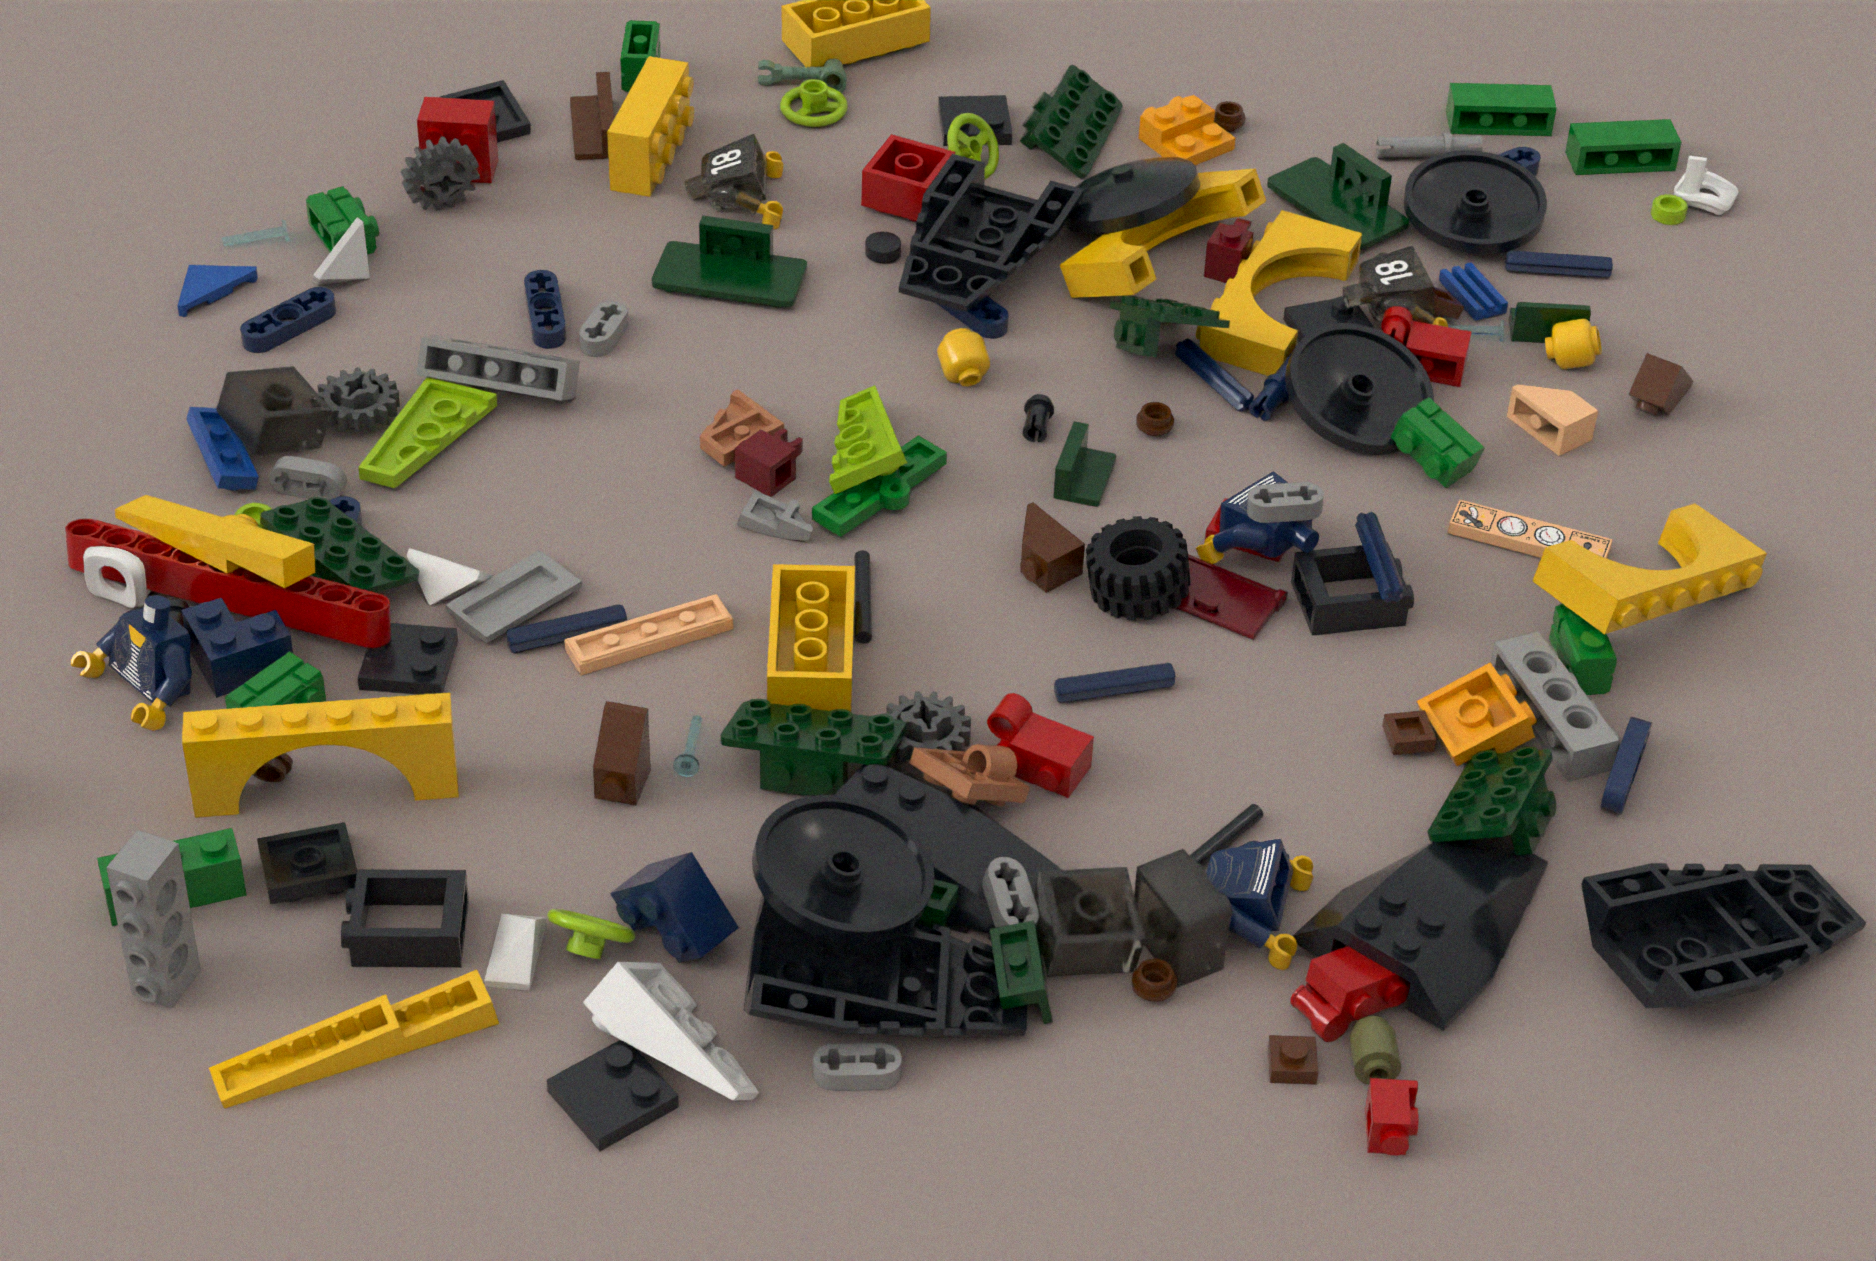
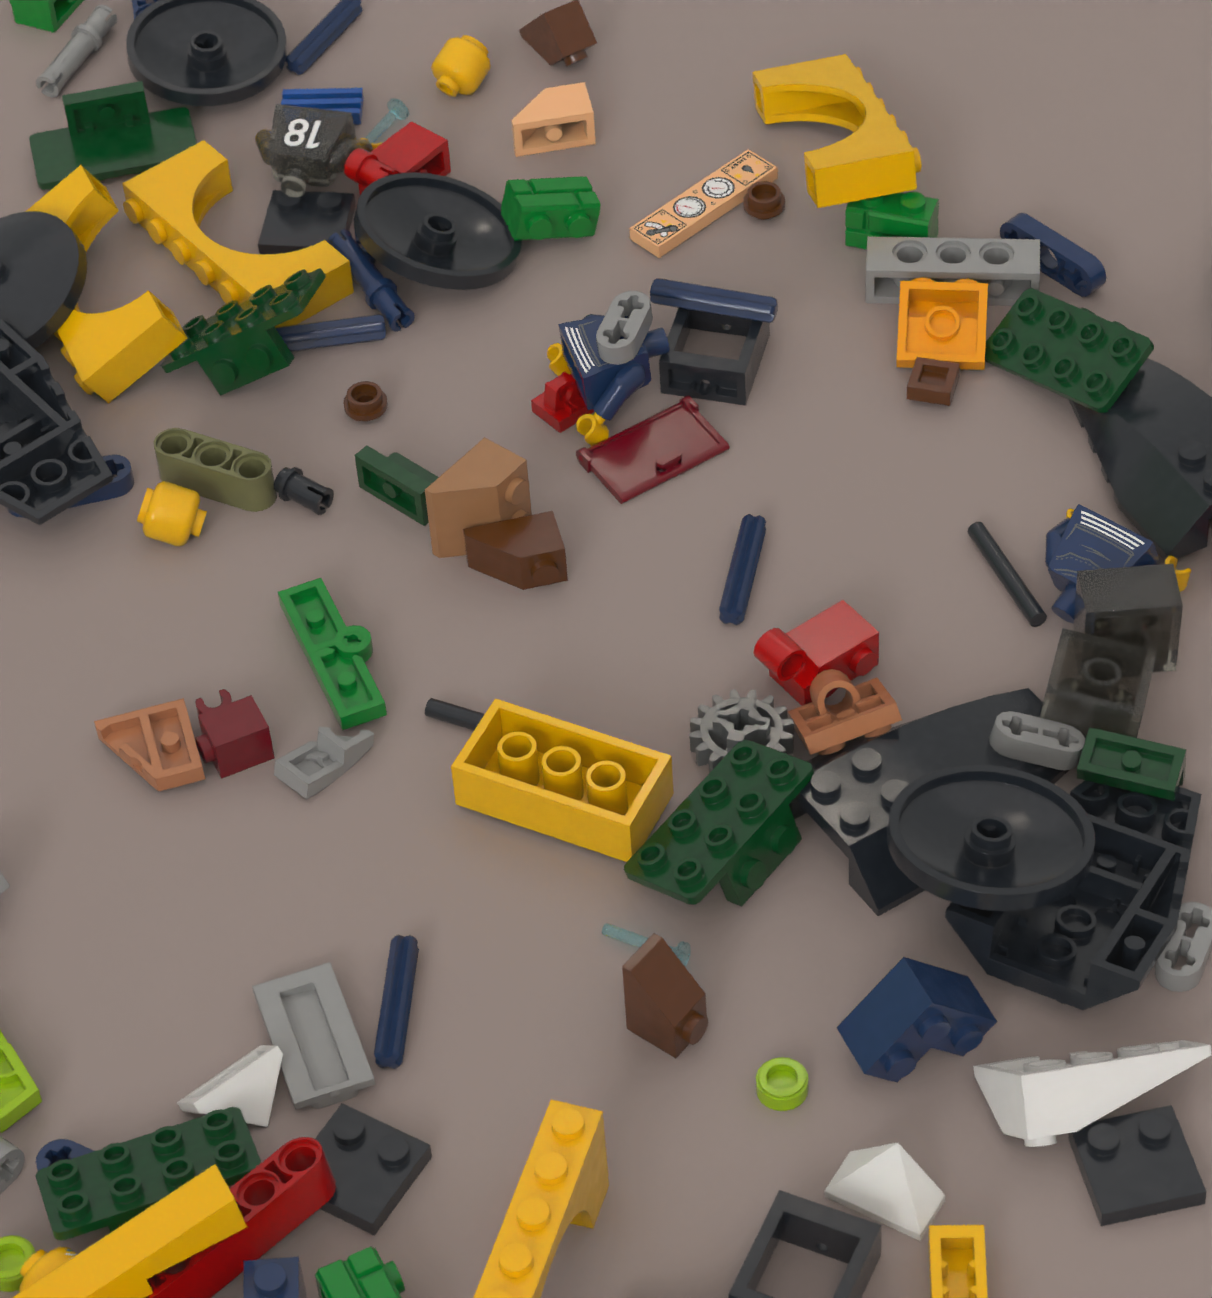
camera: 60 degrees left, 5 degrees up
(589, 932) = (907, 1108): lime piece -> none
(593, 860) = (782, 1084): none -> lime tile
(648, 634) = (445, 932): light nougat tile -> none
(865, 441) = (267, 635): lime wing -> none
(1024, 361) = (216, 469): none -> olive beam
(1069, 492) = (475, 491): none -> medium nougat slope
(1138, 568) = (610, 513): black tyre -> none
(1154, 980) = (1173, 679): reddish brown plate -> none
(1227, 249) = (147, 249): dark red brick -> none
(1535, 321) = (410, 73): dark green panel -> none

